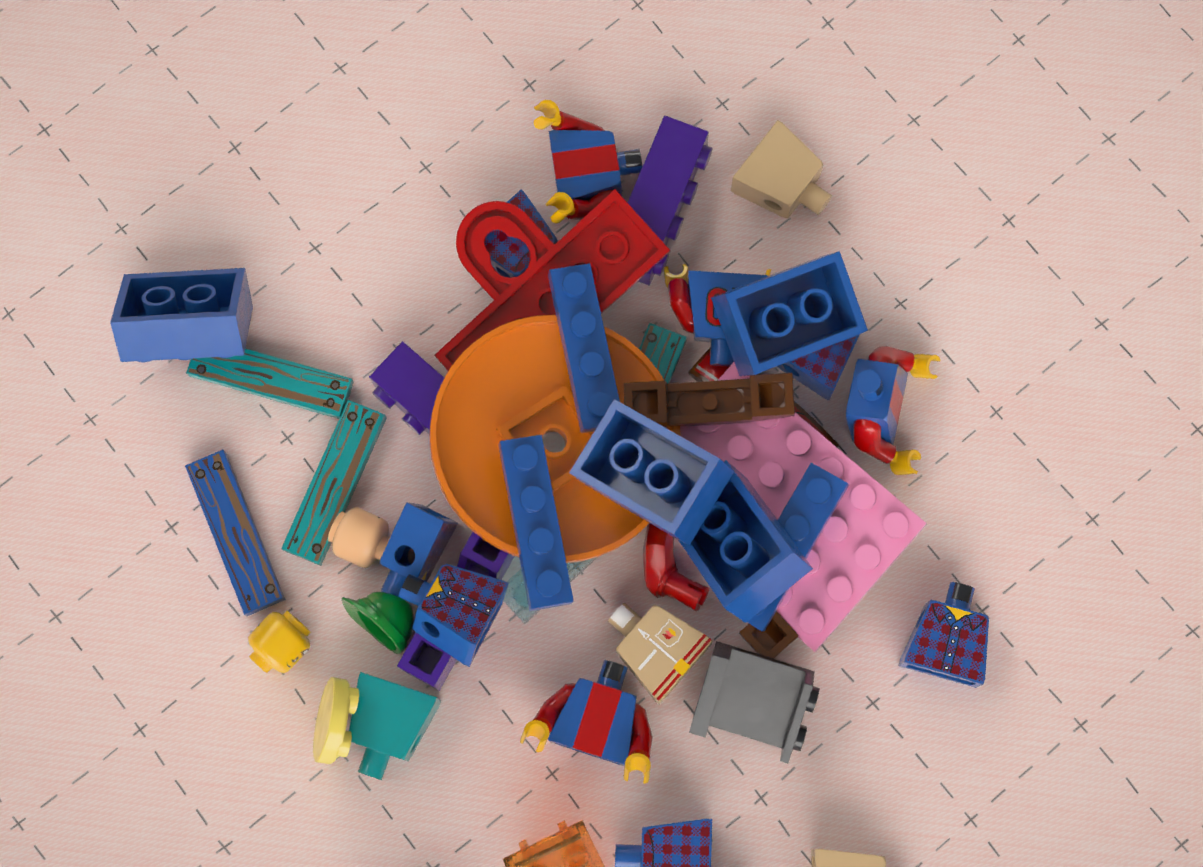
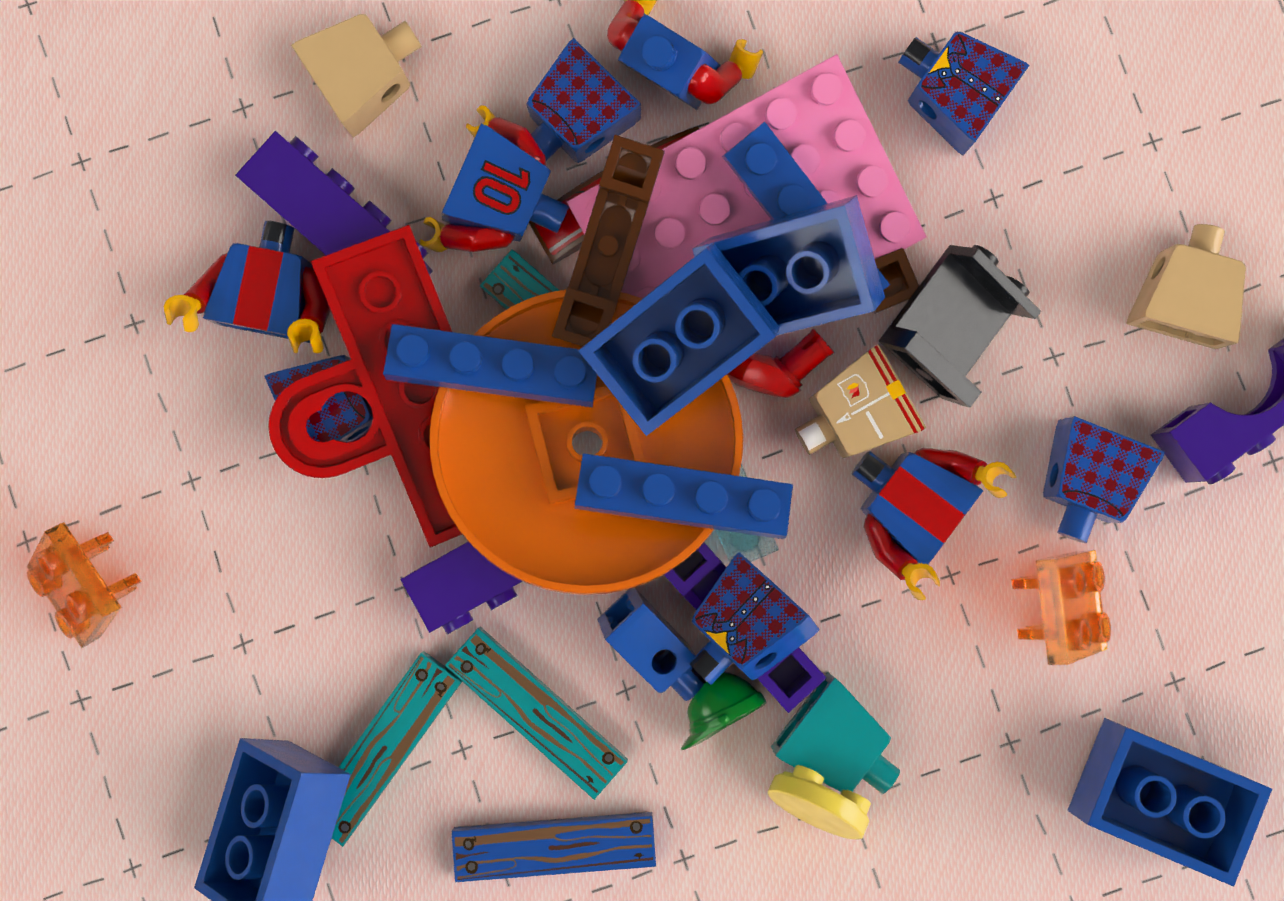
camera: 70 degrees left, 10 degrees up
(279, 642) = (702, 836): yellow head -> none
(323, 104) = (73, 585): none -> clear orange plate
(359, 537) = (614, 704): light nougat head -> none
(789, 314) = (542, 111): blue brick -> none

